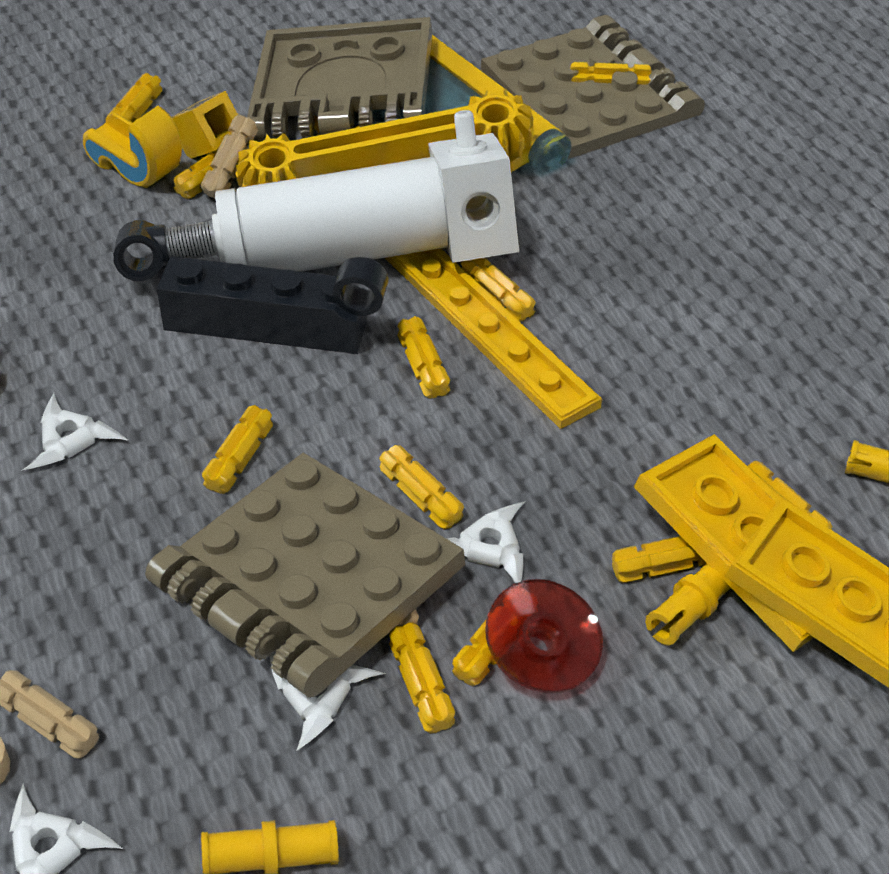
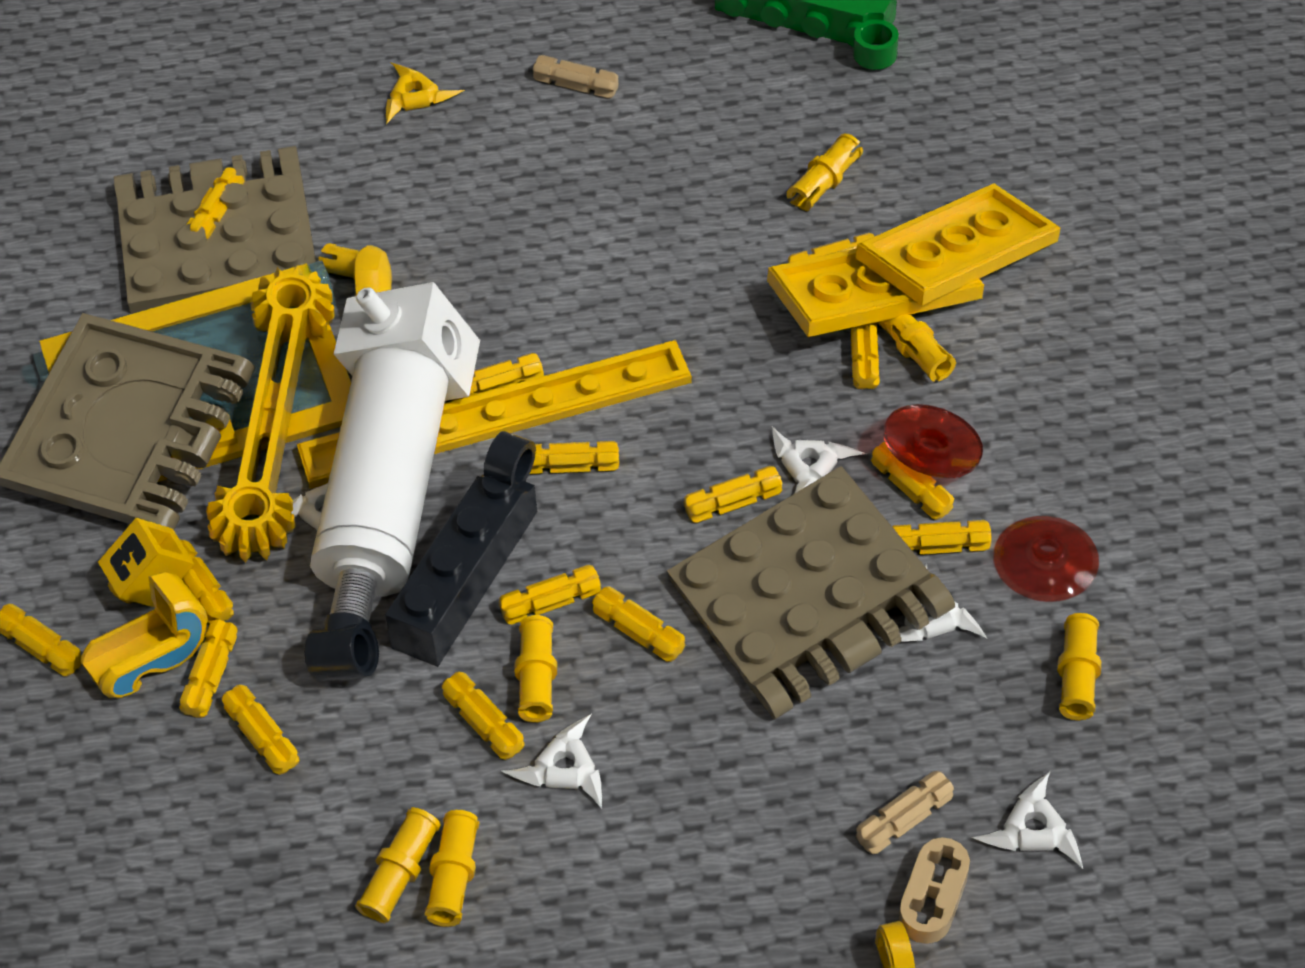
camera: 70 degrees left, 5 degrees up
(70, 237) = (260, 729): none -> yellow axle
(109, 366) = (483, 715): none -> yellow axle
(125, 194) = (208, 668): none -> yellow axle
(164, 385) = (535, 668): none -> yellow pin
(226, 158) = (211, 552): tan axle -> none
(256, 379) = (549, 594): none -> yellow axle
(428, 818) = (1042, 573): none -> clear red dish
(563, 173) = (368, 266): none -> yellow arm
(812, 159) = (410, 80): none -> yellow piece

